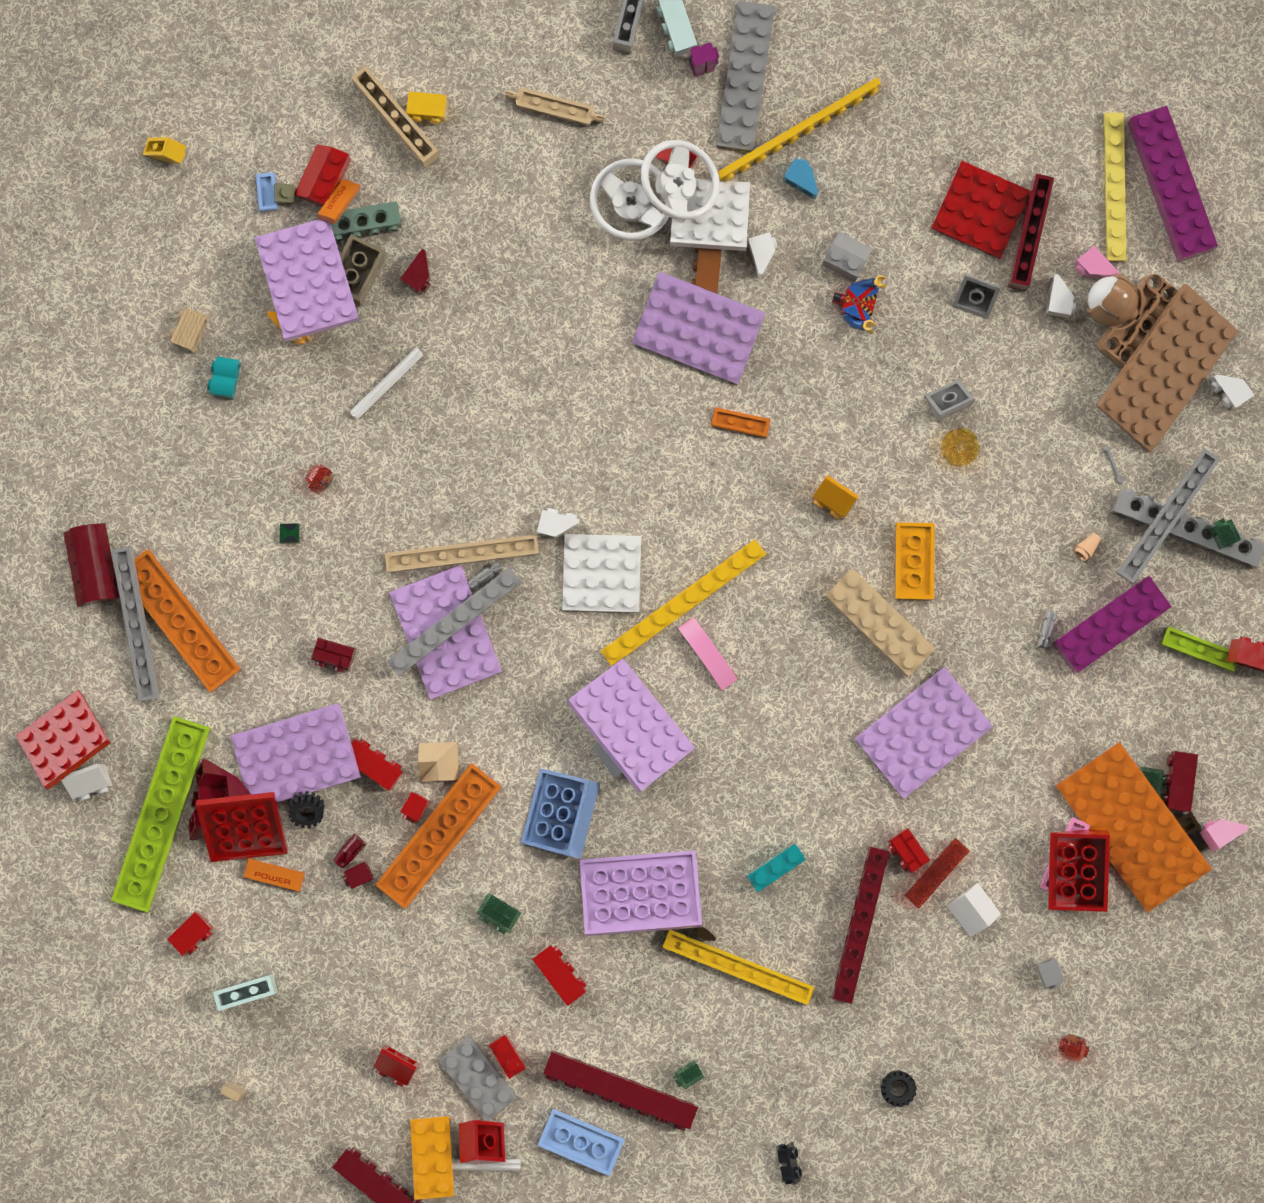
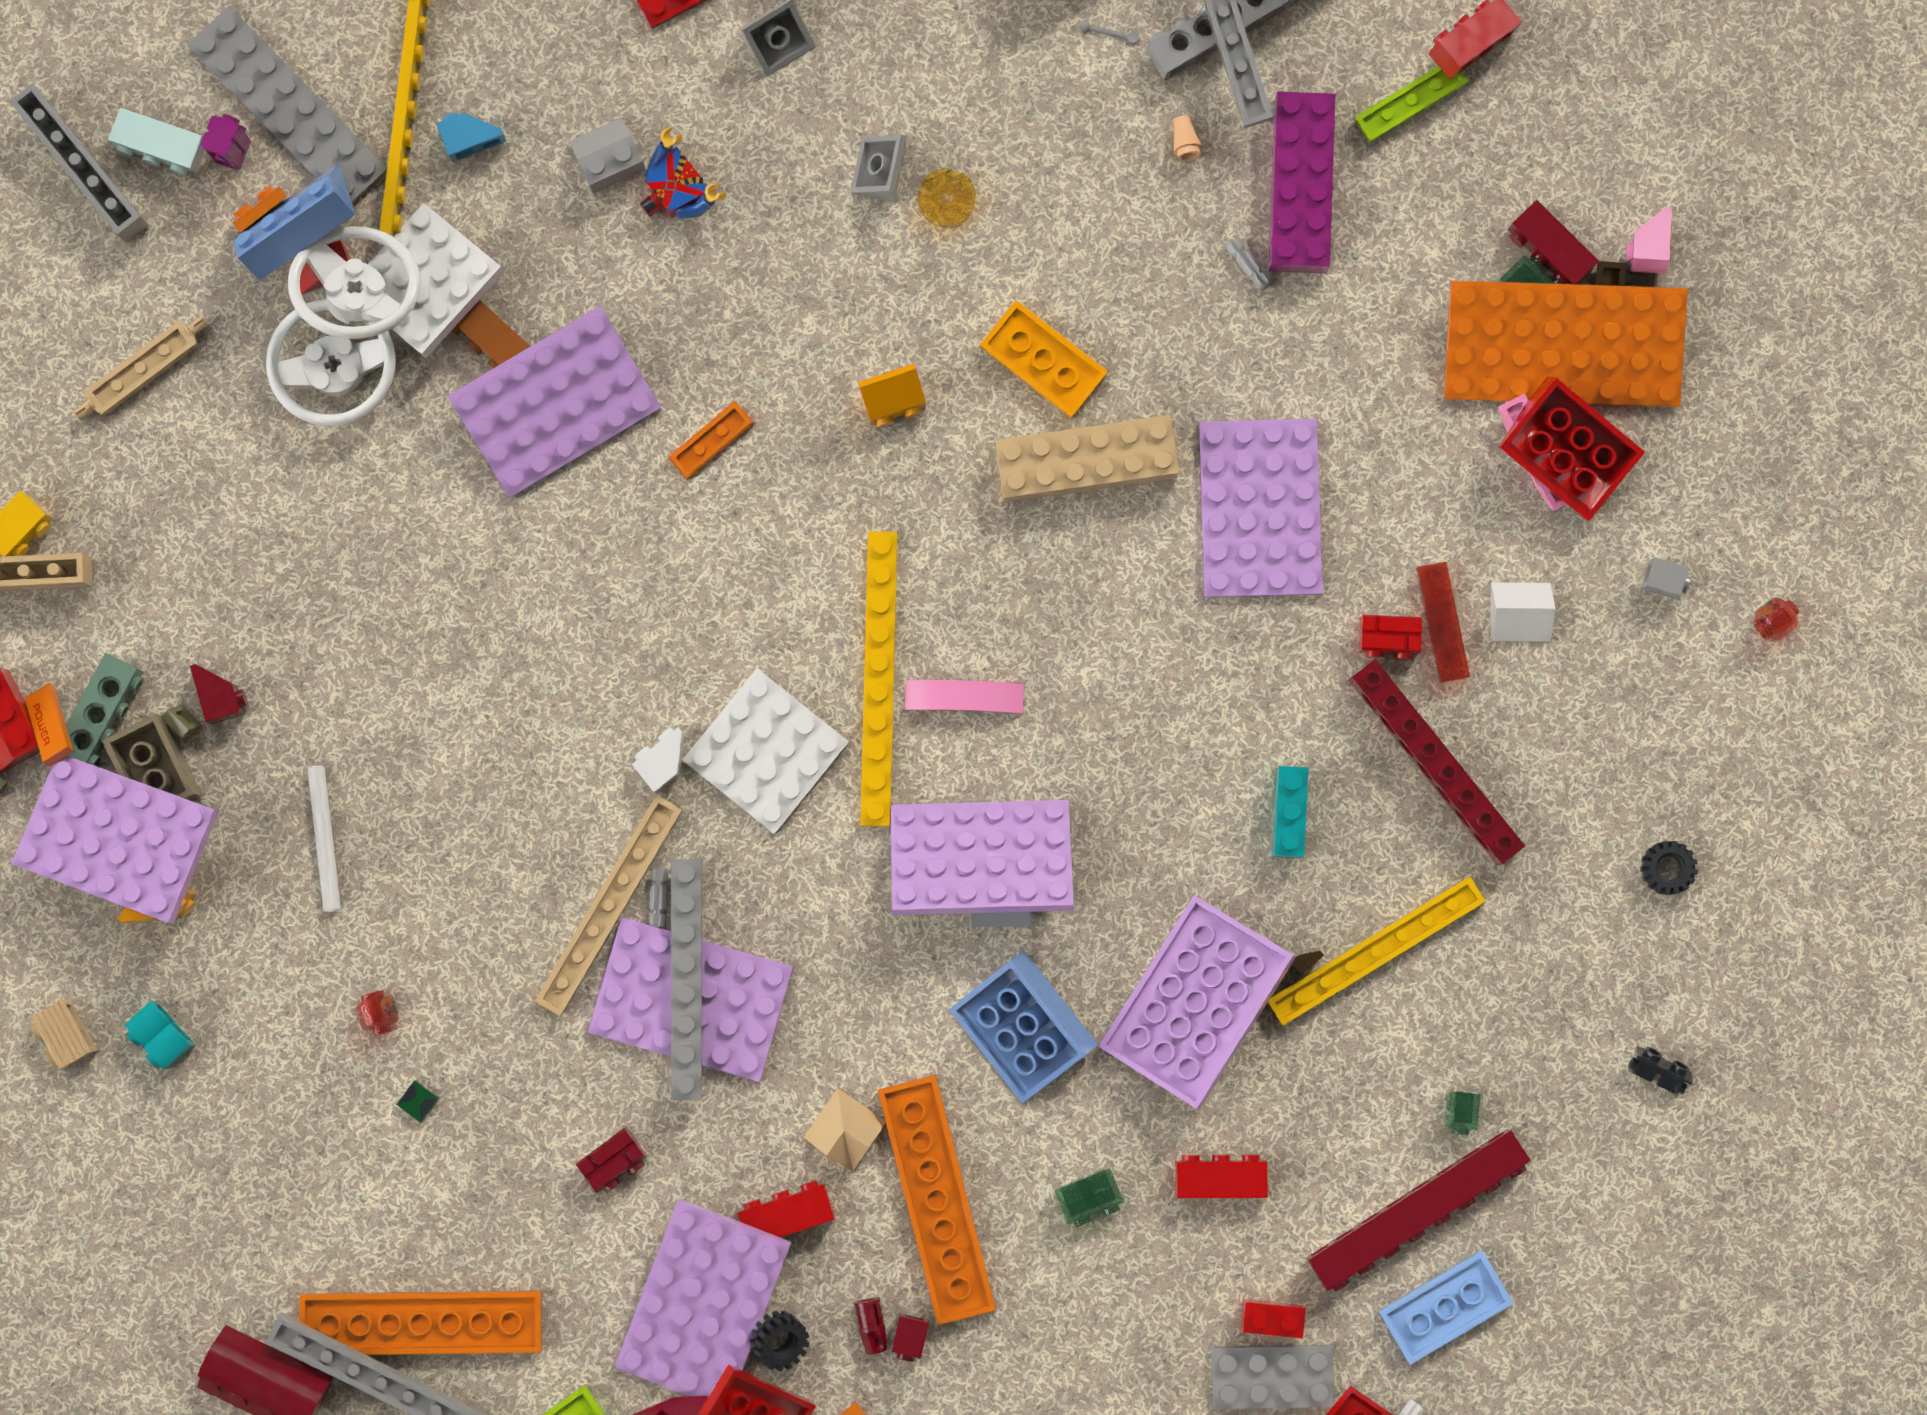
camera: 50 degrees left, 0 degrees up
(391, 266) = (181, 721): none -> olive plate
(415, 807) = (880, 1202): red brick -> none
(674, 99) = (267, 199): none -> orange plate
(687, 126) = (295, 223): none -> medium blue slope
(762, 251) = (519, 252): white slope -> none

